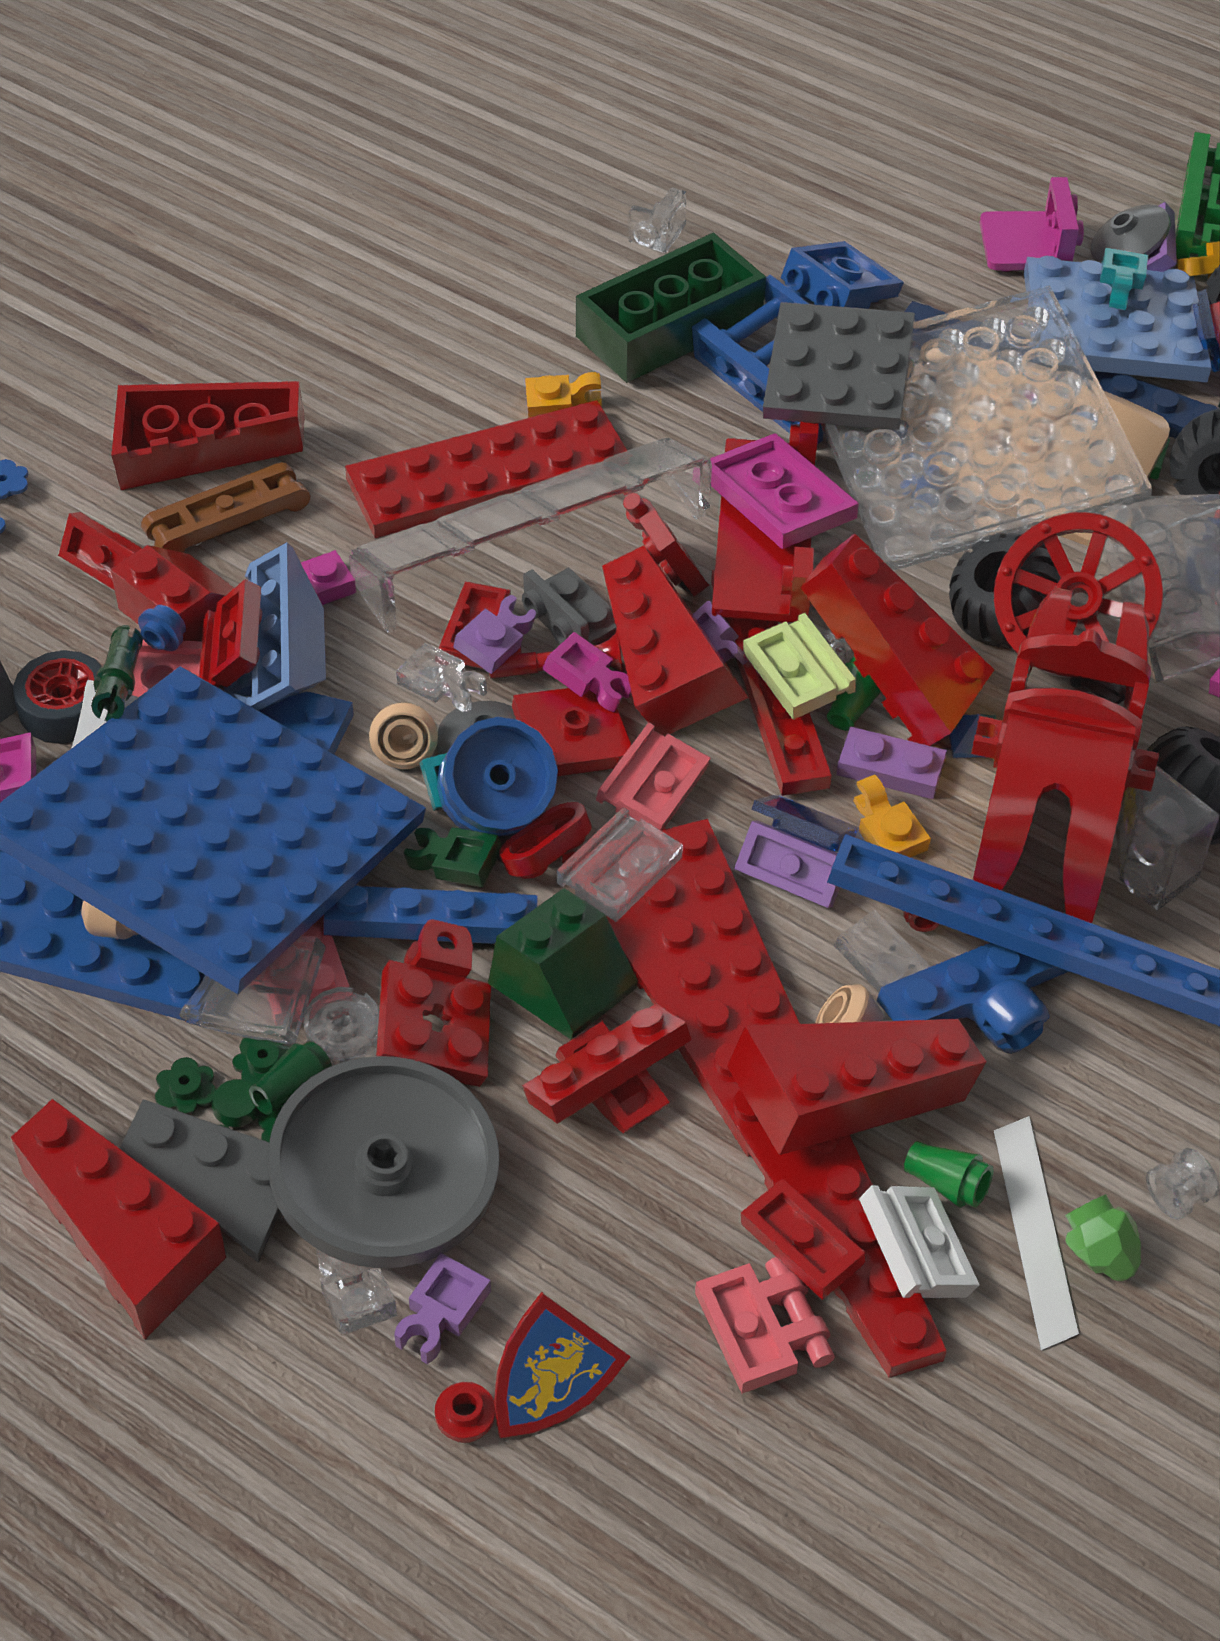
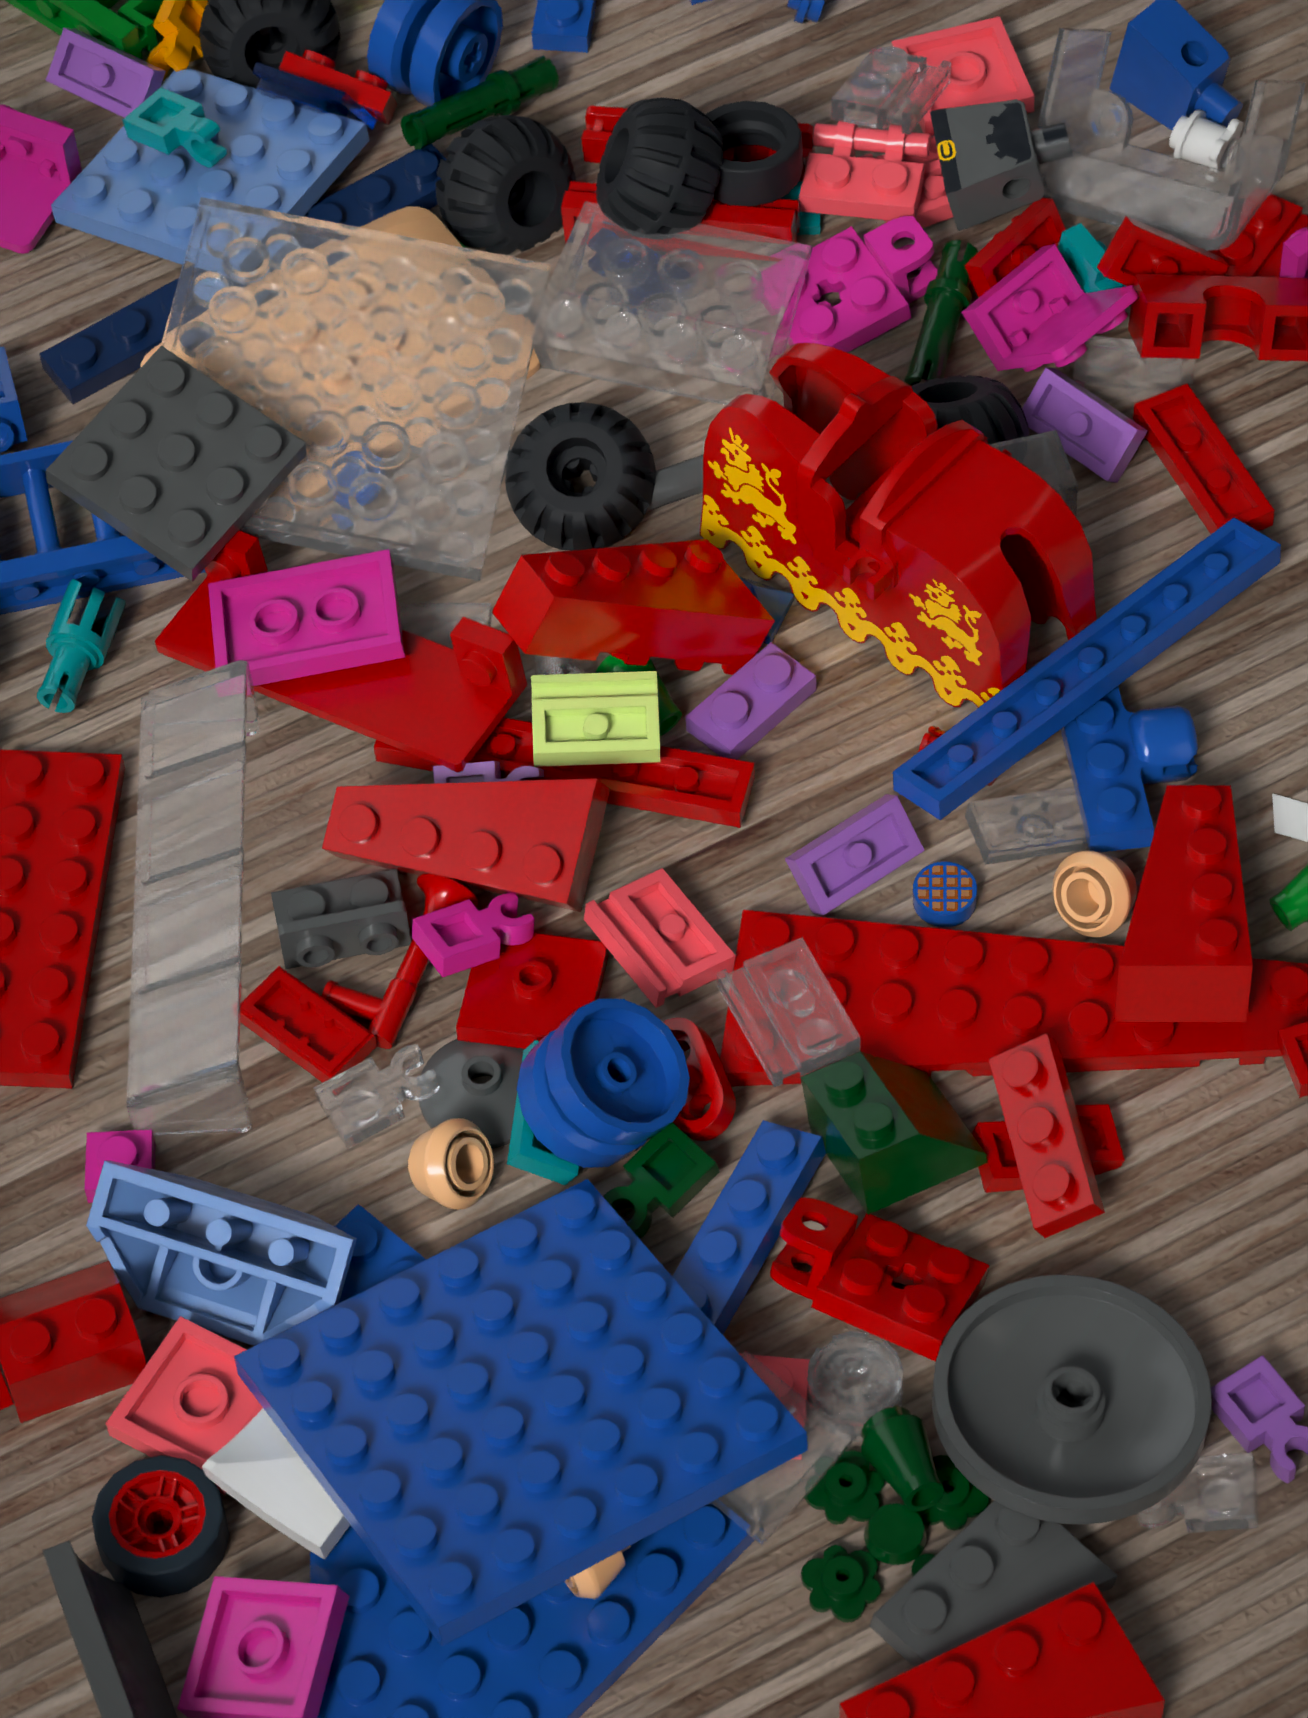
camera: 60 degrees left, 5 degrees up
(116, 679) = (235, 1430): dark green pin -> none
(162, 628) = (144, 1360): blue plate -> none
(231, 636) = (213, 1285): red plate -> none
(493, 638) = (355, 1012): medium lavender plate -> none
(663, 544) = (318, 766): red plate -> none
(702, 402) = (76, 647): none -> teal arm
(798, 935) = (944, 894): none -> blue tile
(804, 822) = (807, 814): clear blue piece -> none
(888, 826) = (846, 744): light orange plate -> none
(1079, 582) = (669, 392): red wheel -> none
(1132, 230) = (102, 92): dark grey dish -> none

